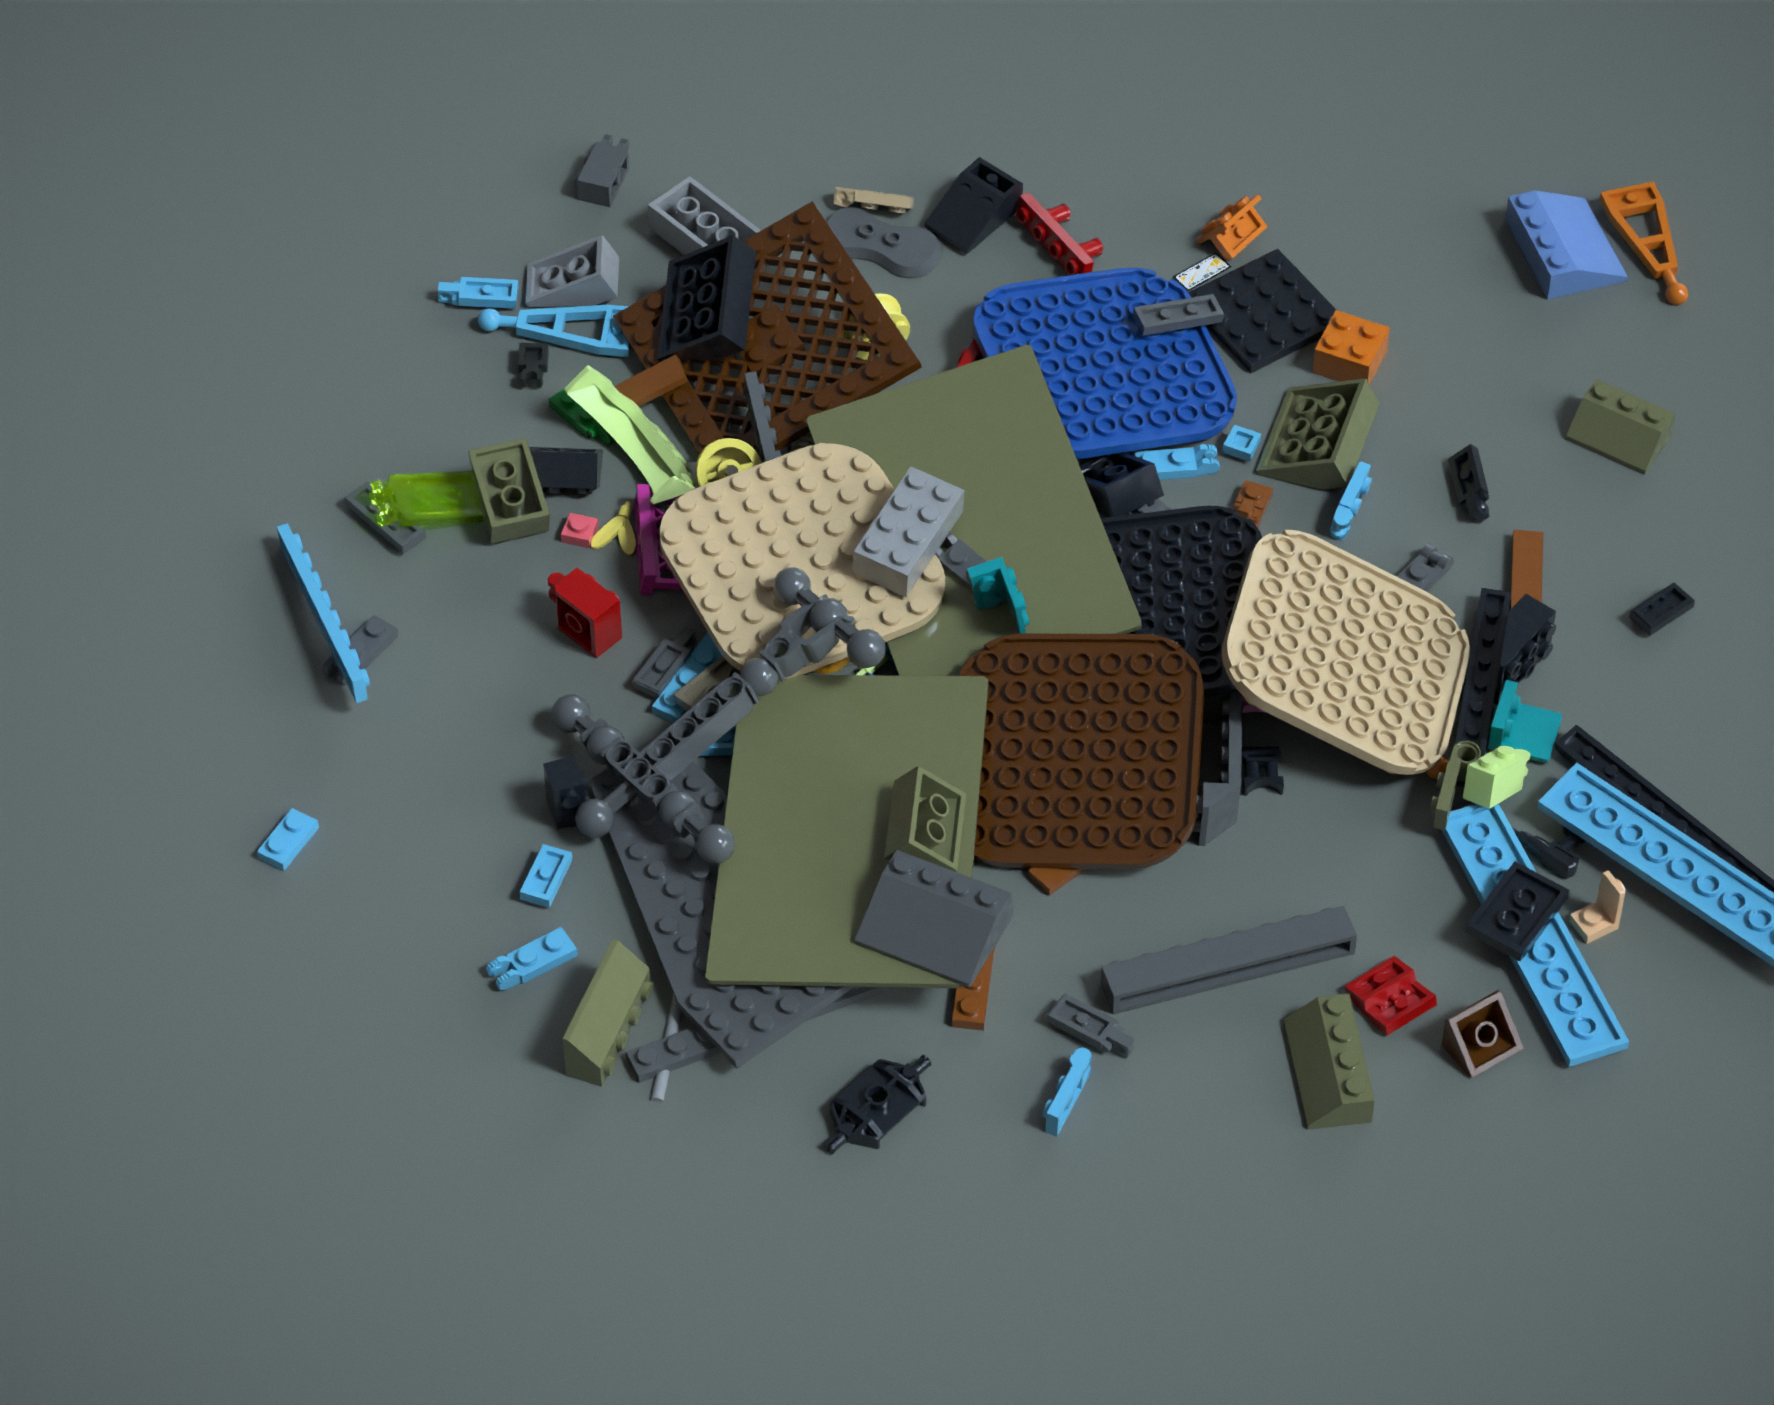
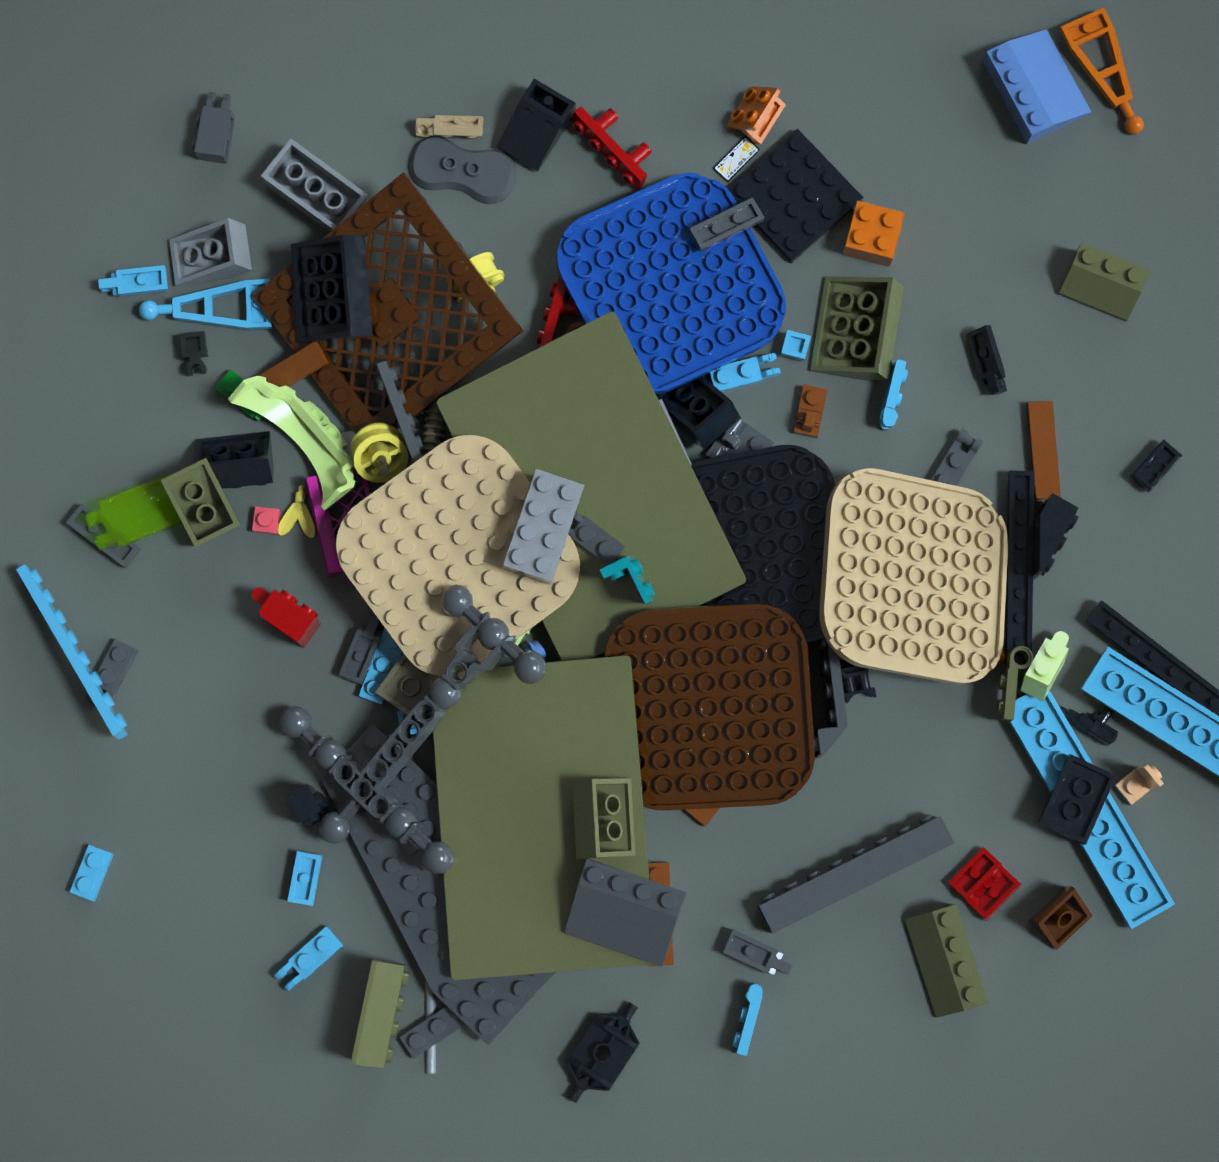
camera: 10 degrees left, 30 degrees up
(1524, 726) = (1060, 606): teal bracket -> none

